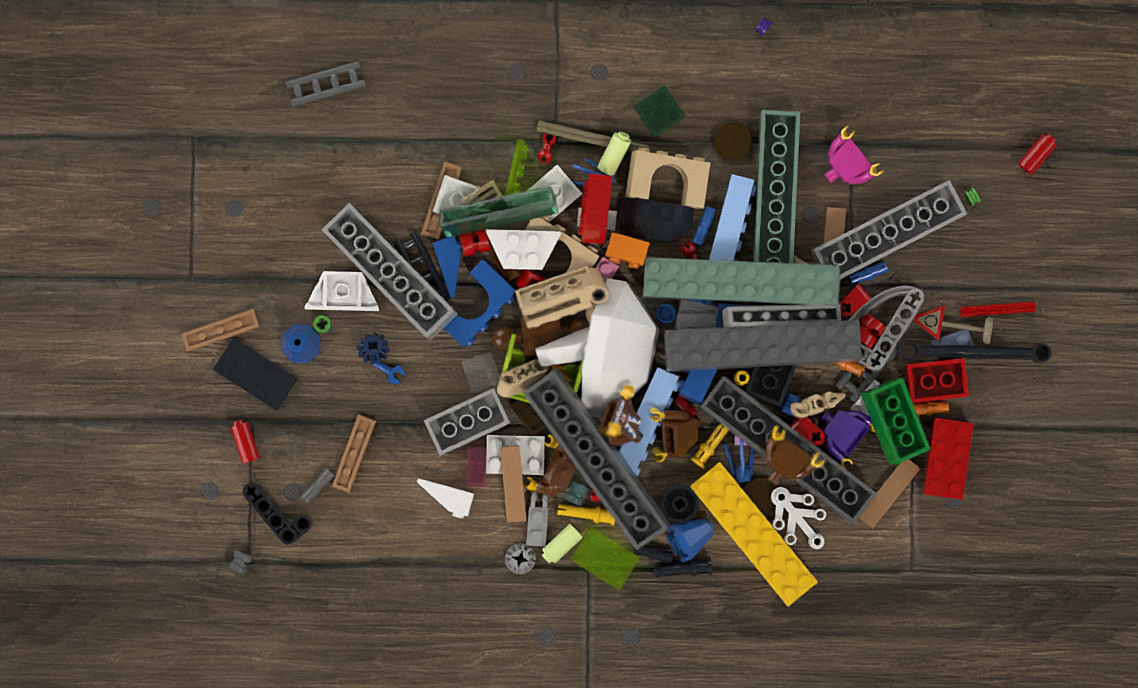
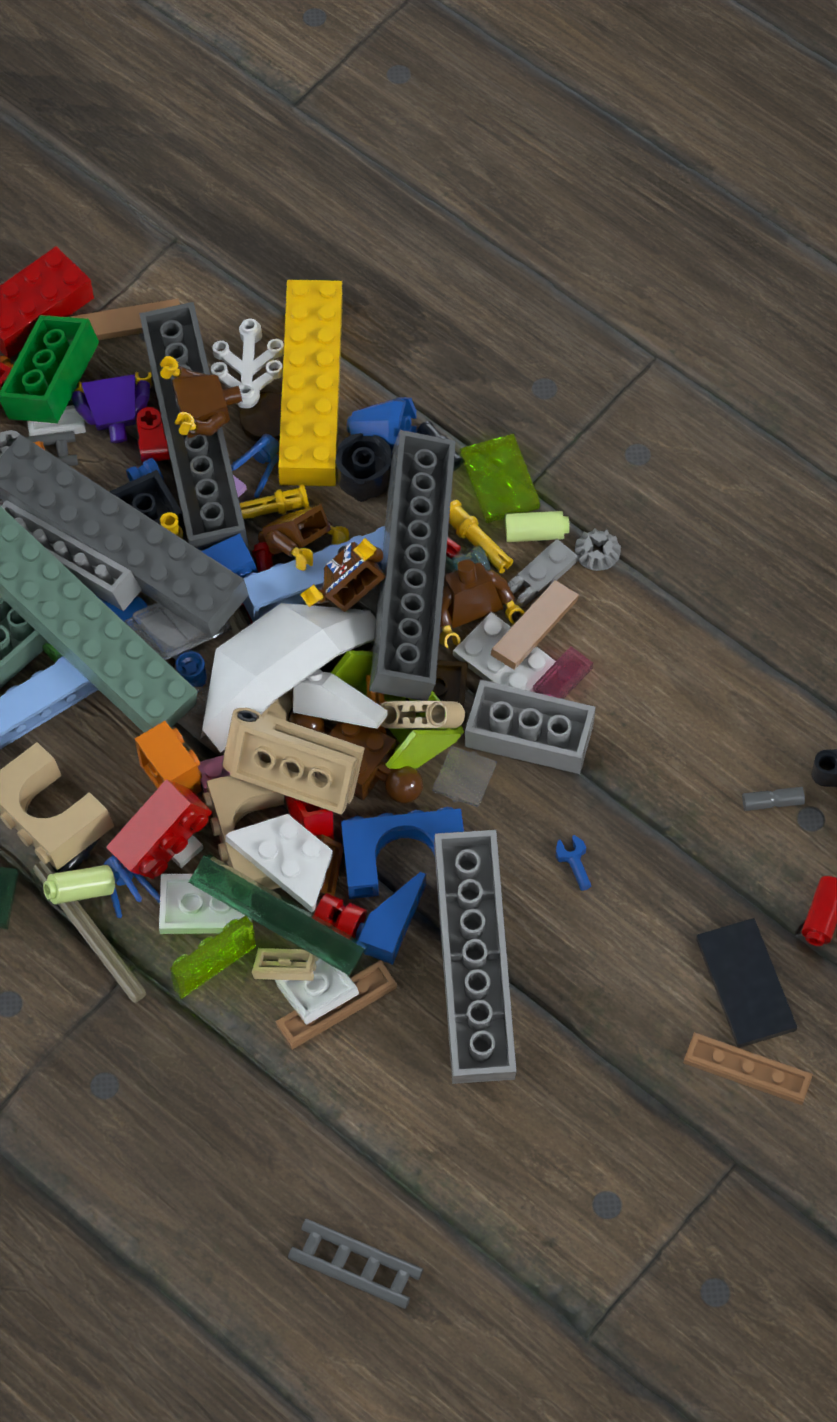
camera: 140 degrees left, 25 degrees down
(309, 343) = (658, 972): blue cone -> none
(317, 321) = (607, 967): bright green bush -> none
(342, 292) = (556, 991): white wing -> none
(353, 453) = (697, 802): medium nougat tile -> none
(372, 342) = (584, 895): dark blue gear -> none
(425, 257) = (417, 954): black bar -> none
(451, 498) = (620, 662): white slope -> none
(545, 153) = (161, 957): red arm -> none
(654, 219) = (107, 775): black wedge -> none
(690, 251) = (98, 720): red arm -> none
(693, 568) = (395, 389): black pin -> none
(705, 223) = (59, 731): blue piece -> none
(816, 404) = (118, 450): tan animal -> none

